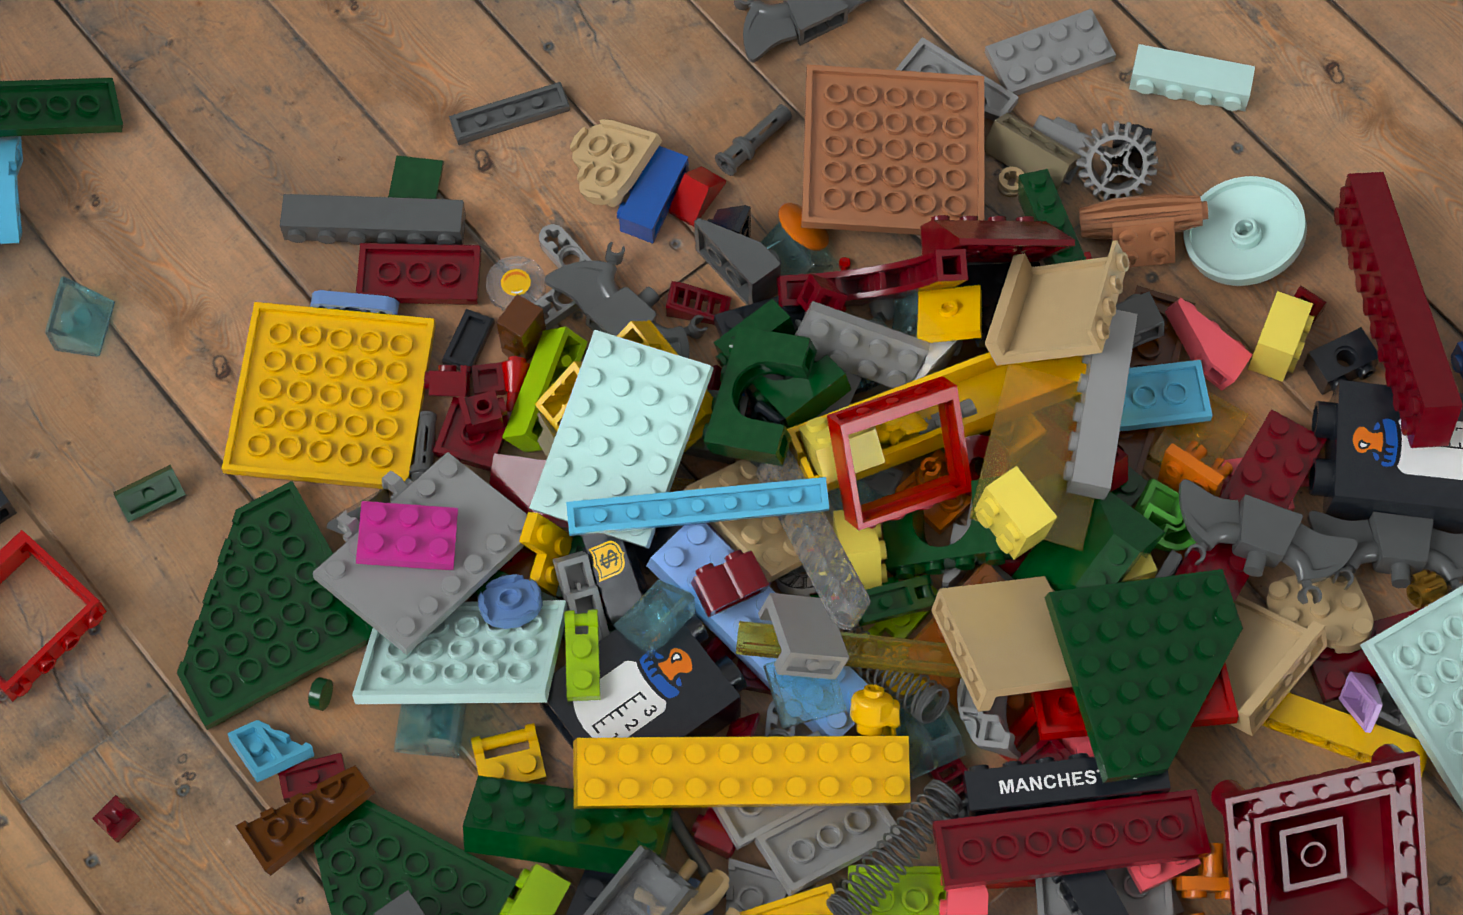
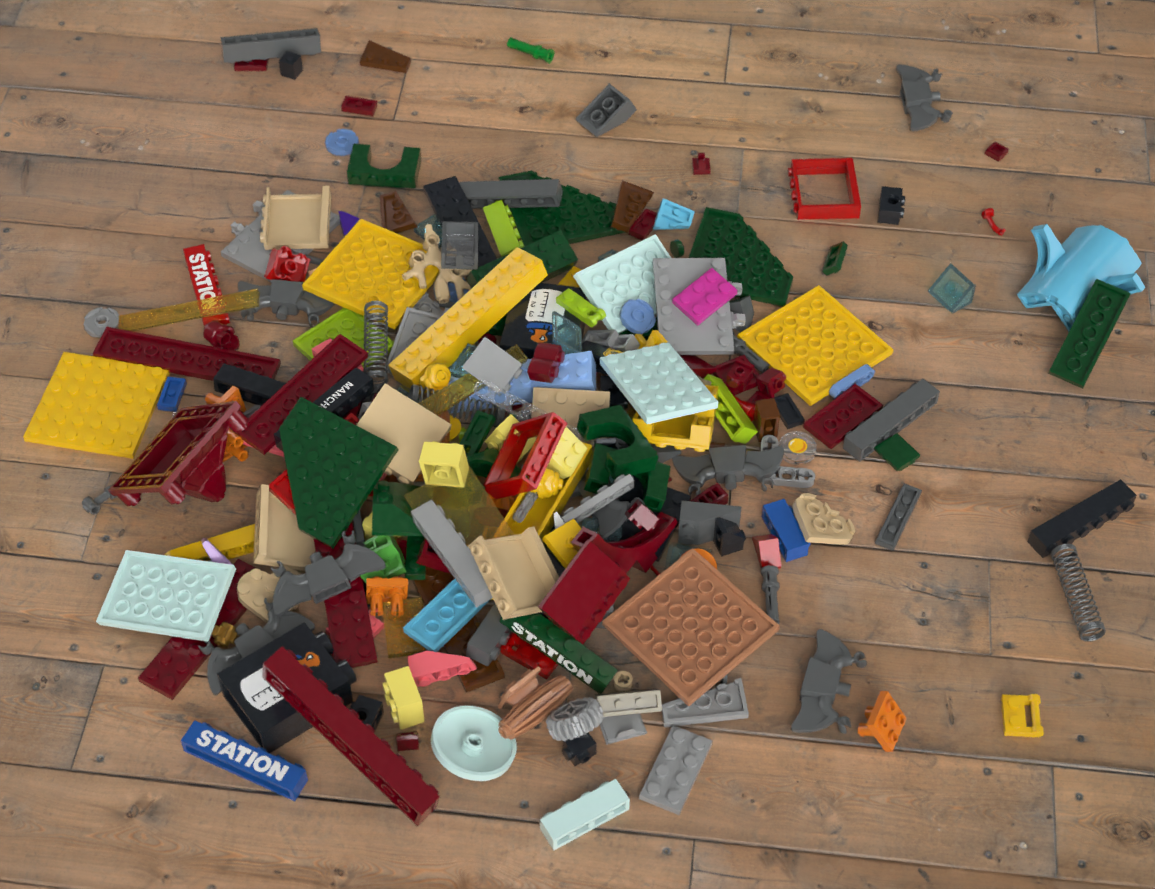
camera: 135 degrees right, 15 degrees down
(697, 506) = (593, 371): medium azure plate -> none

